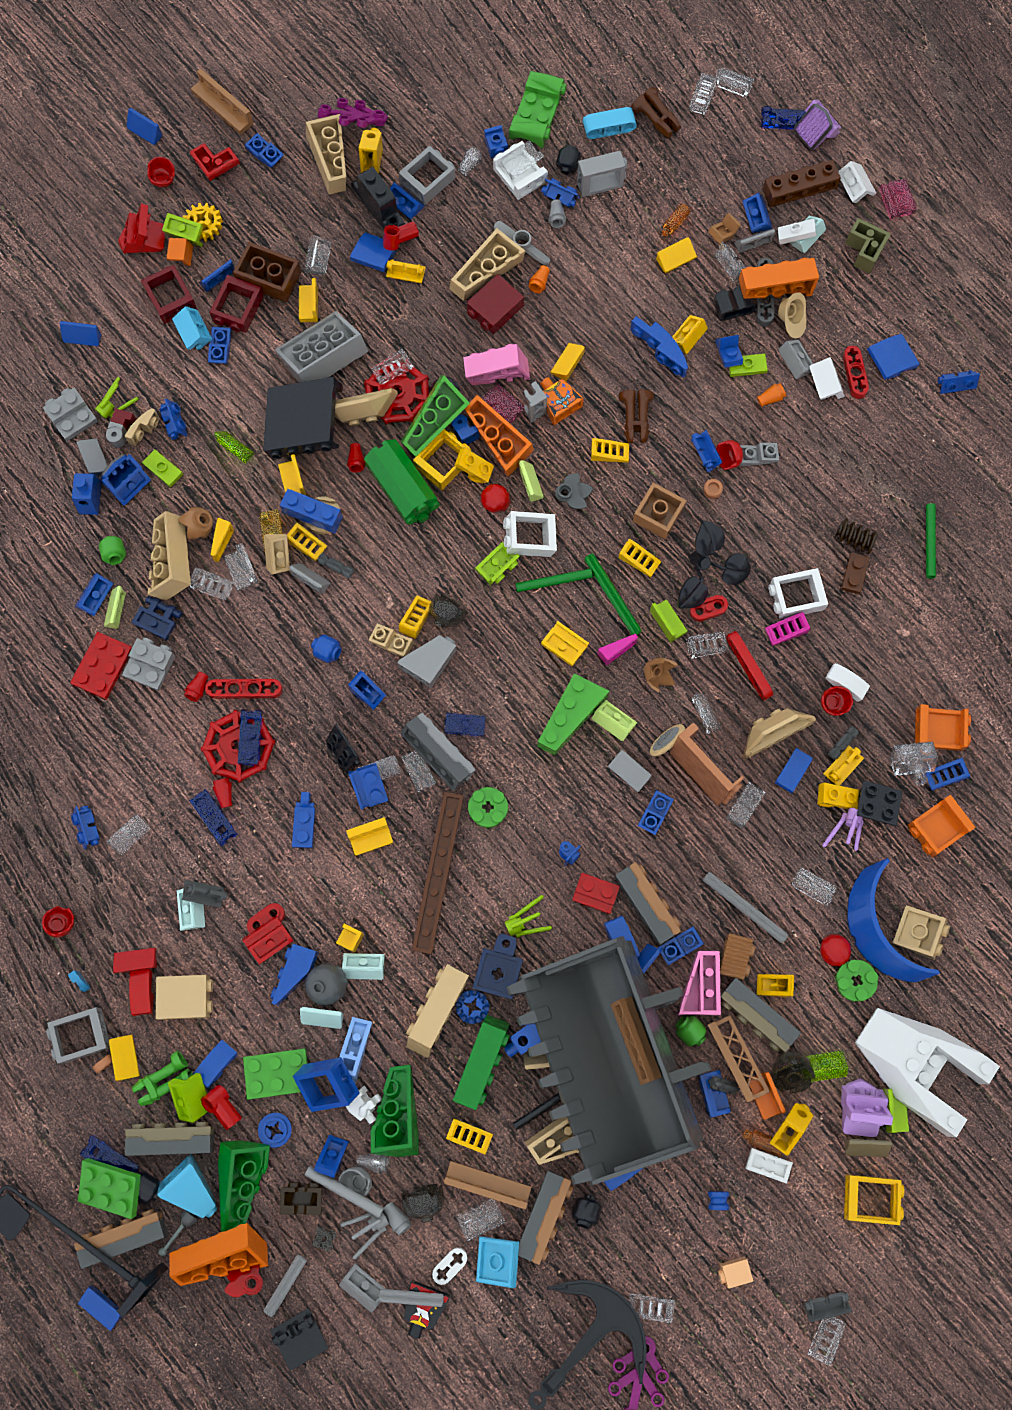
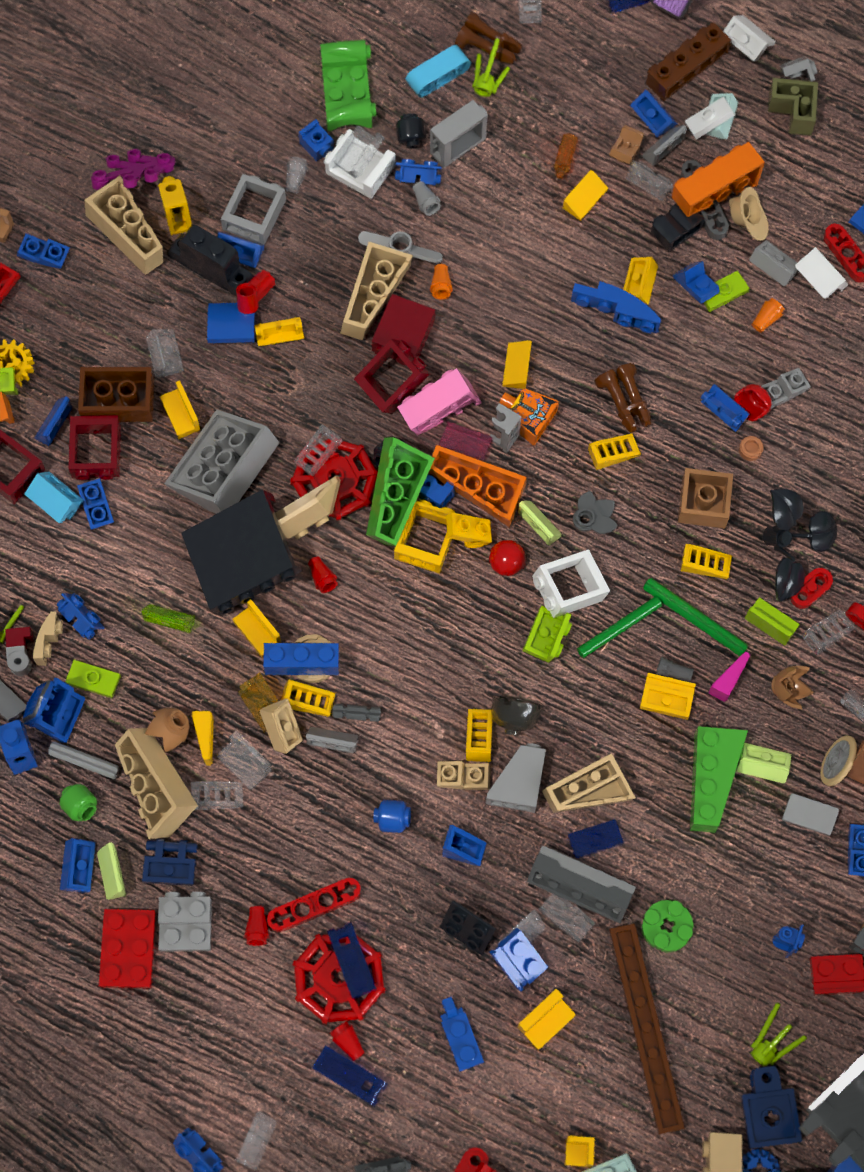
camera: 25 degrees left, 5 degrees down
(130, 522) = (83, 760): none -> light grey axle
(401, 482) = (393, 582): green brick -> none
(453, 337) = (373, 388): none -> dark red window
(477, 685) = (590, 787): none -> tan wedge
(576, 625) = (668, 668): none -> dark grey pin
(640, 143) = (485, 84): none -> lime plant
(878, 217) = (794, 68): none -> light grey bracket
(898, 198) = (802, 38): clear pink plate -> none

